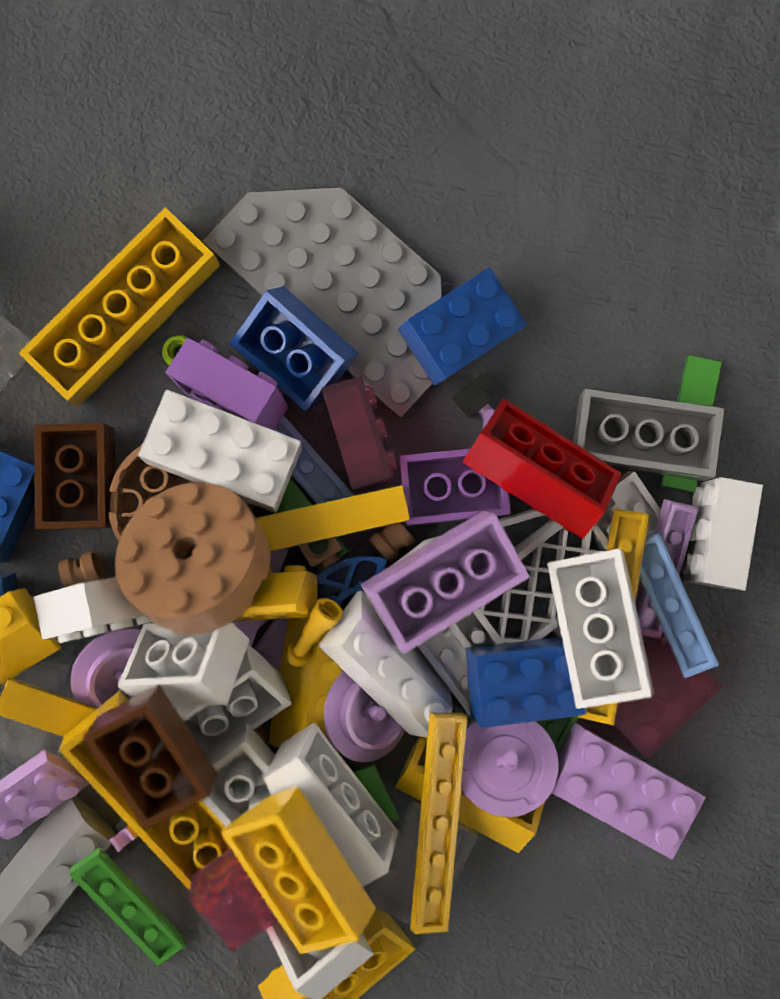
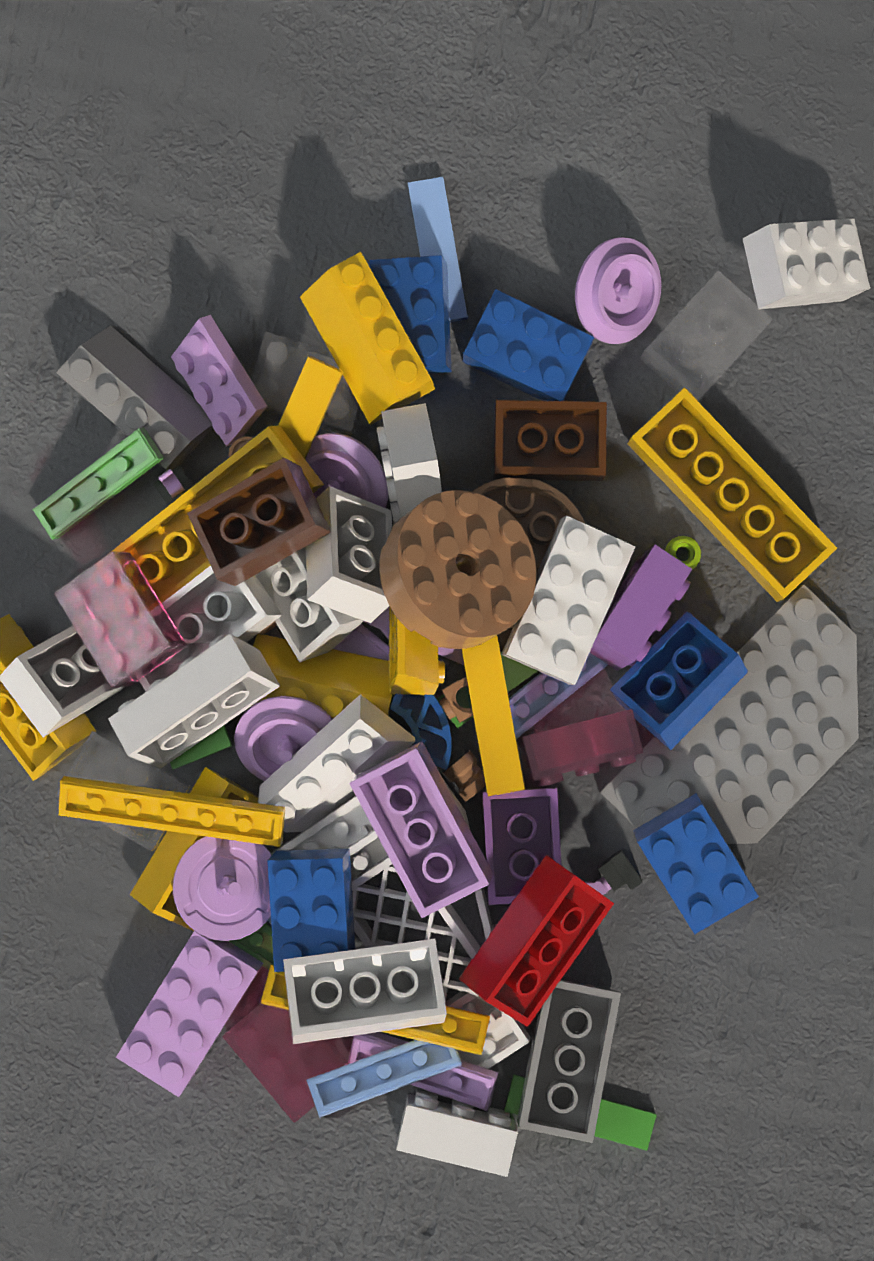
camera: 90 degrees right, 0 degrees up
(81, 570) = (450, 443): medium nougat wheel -> none
(300, 872) = (136, 667): yellow slope -> none
(322, 618) = (389, 700): yellow piece -> none

